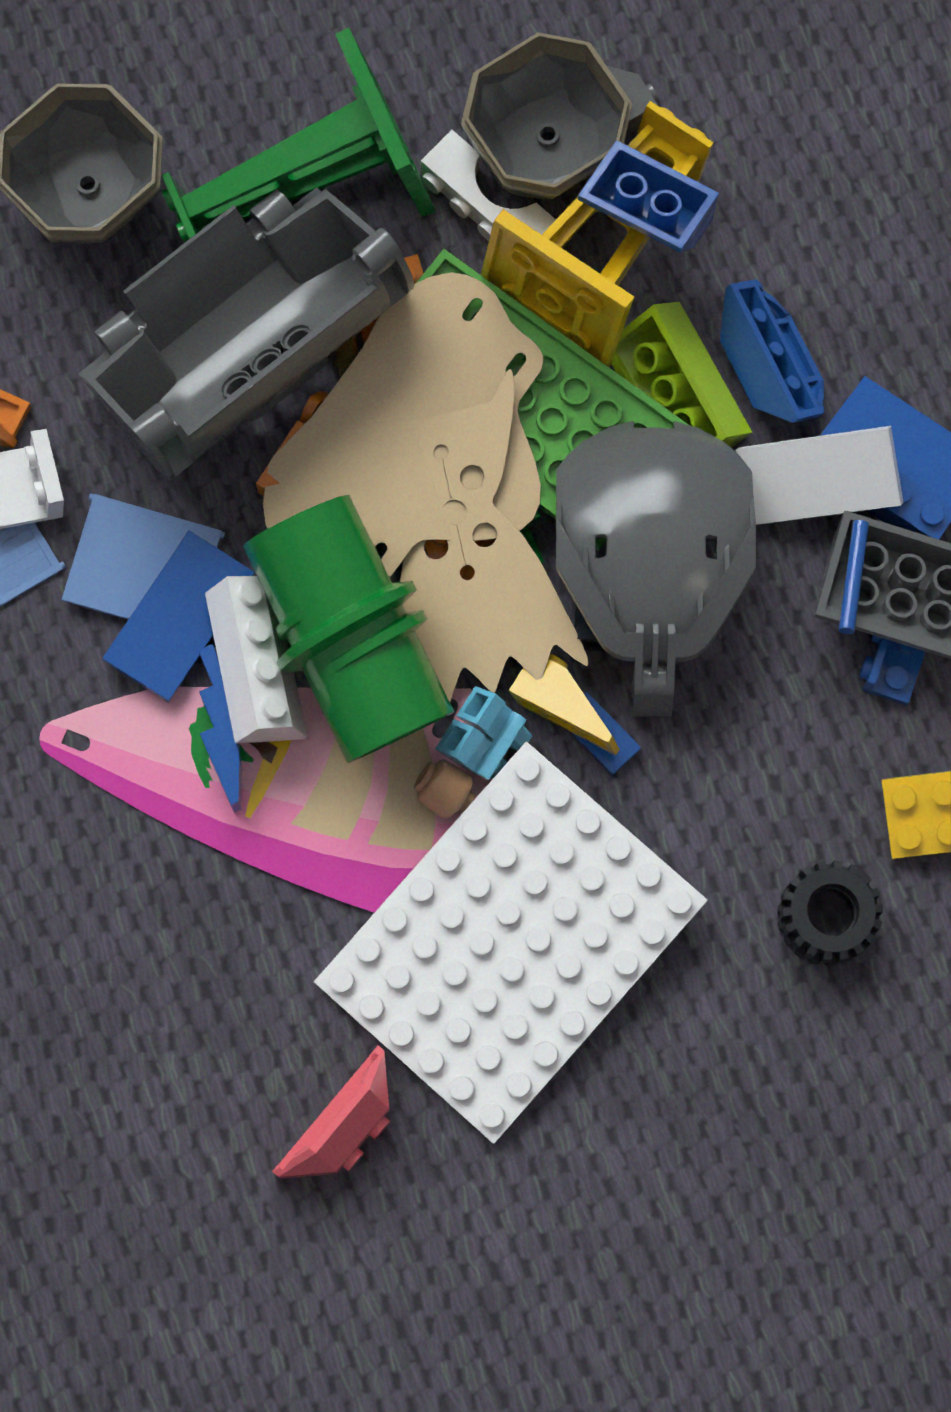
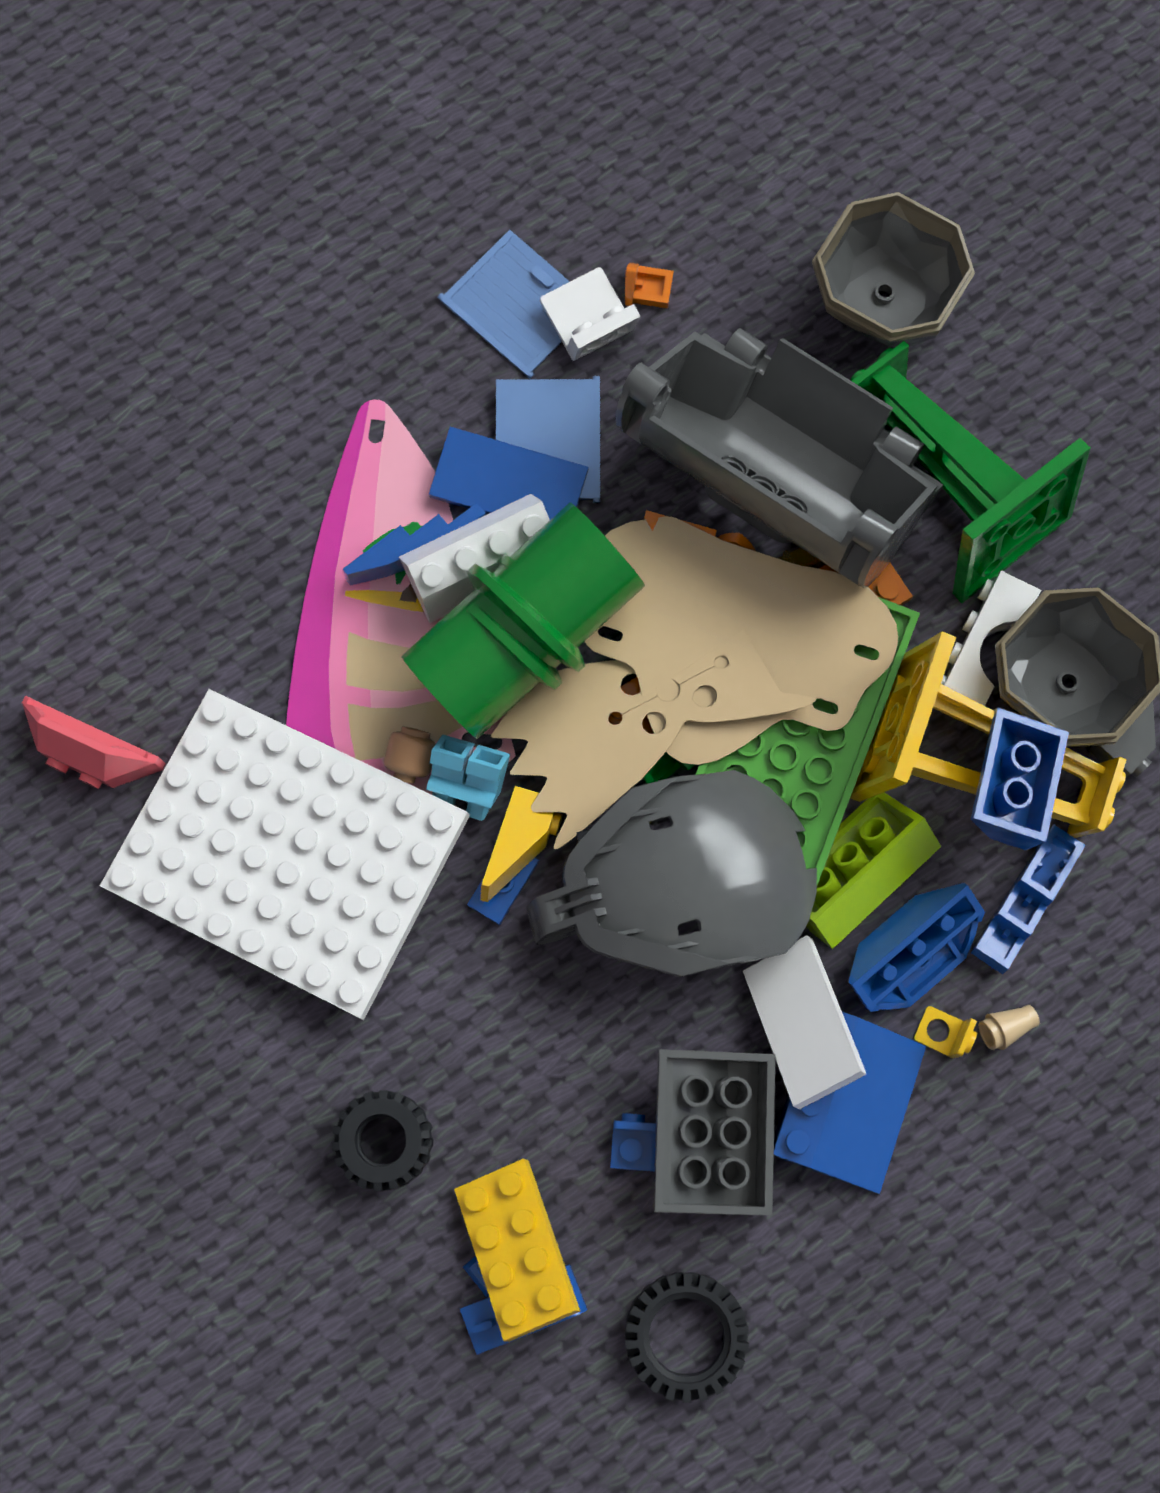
camera: 80 degrees right, 0 degrees up
(756, 245) = (1028, 899): none -> blue slope
(853, 577) = (706, 1077): blue bar -> none
(866, 341) = (960, 1036): none -> yellow bracket
(867, 297) = (1006, 1027): none -> tan cone

